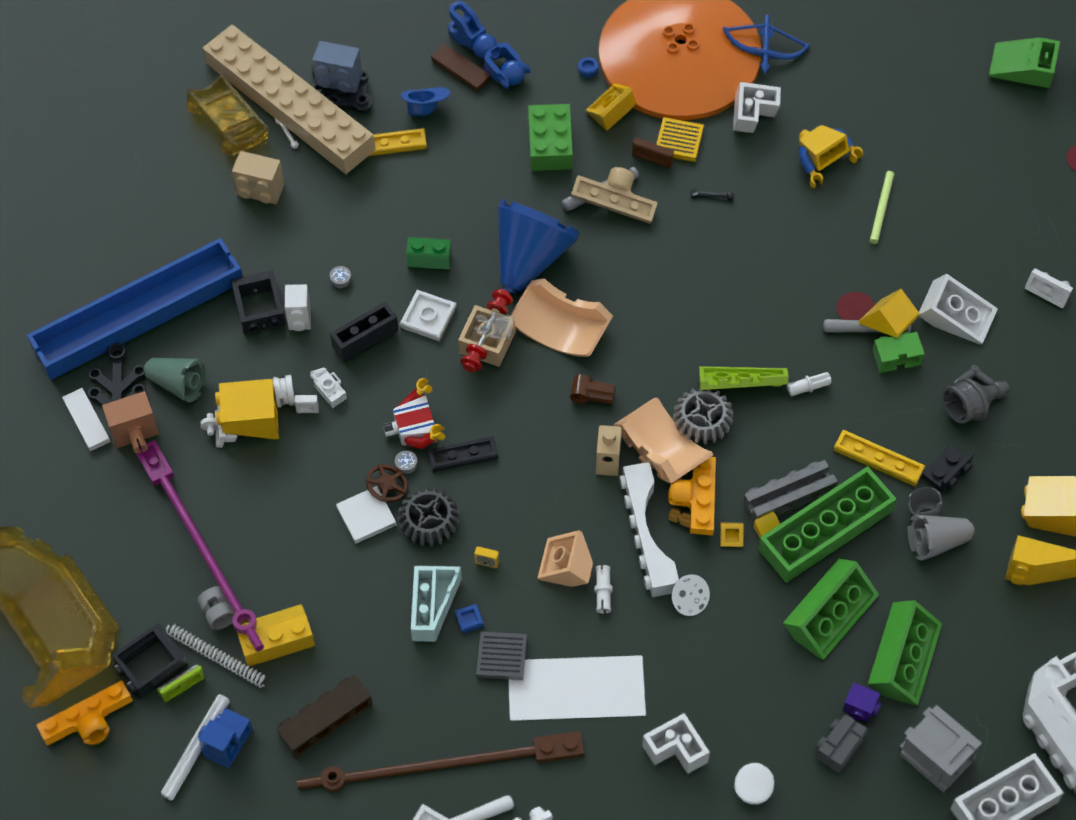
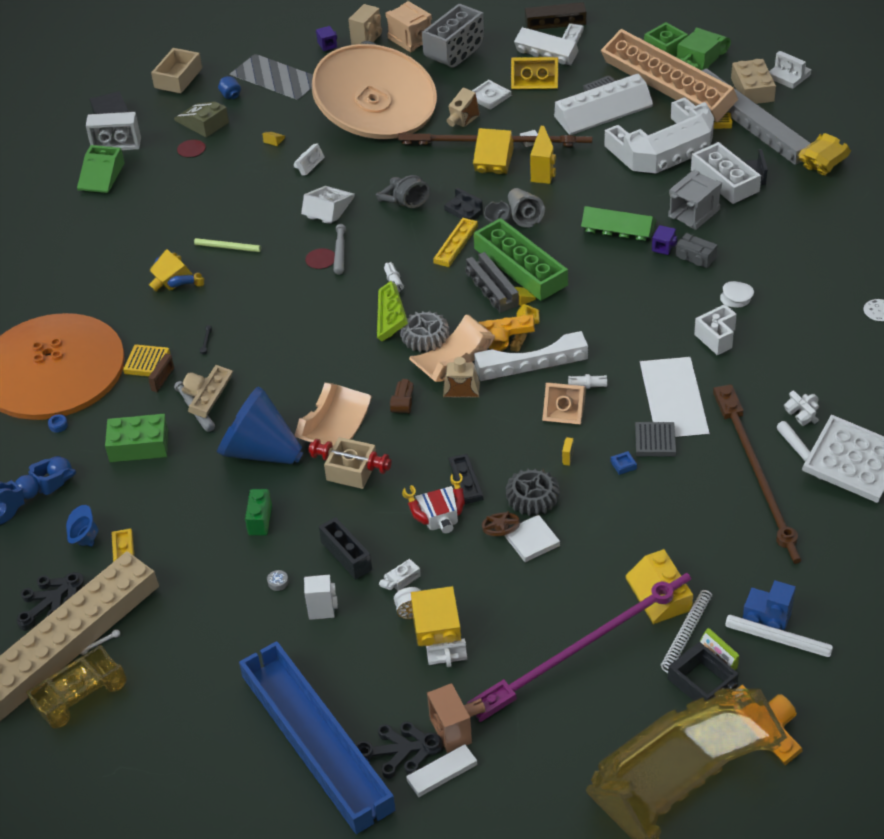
camera: 90 degrees left, 15 degrees down
(178, 375) = (394, 689): sand green cone -> none
(216, 607) = (642, 629): light grey wheel -> none
(256, 284) = (314, 649): black window -> none
(258, 177) = (163, 645): tan brick -> none
(306, 404) = (421, 581): white tile -> none
(324, 716) = (734, 544): dark brown brick -> none
(337, 66) = (40, 585): sand blue brick -> none
(406, 462) = (476, 515): light grey tile -> none
(428, 315) = (320, 510): white tile -> none
(432, 597) = (616, 479): light aqua wedge -> none
(460, 67) = (42, 511): reddish brown tile -> none
(499, 326) = (349, 443): clear plate -> none
(612, 105) = (107, 398): yellow slope -> none
(690, 595) = (588, 330): white sticker -> none
(753, 101) = (122, 311): white brick -> none
(766, 33) = (64, 309): blue piece -> none
(831, 608) = (586, 259): bright green slope -> none
(891, 314) = (332, 232): yellow slope -> none
(894, 351) = (364, 231): bright green brick -> none

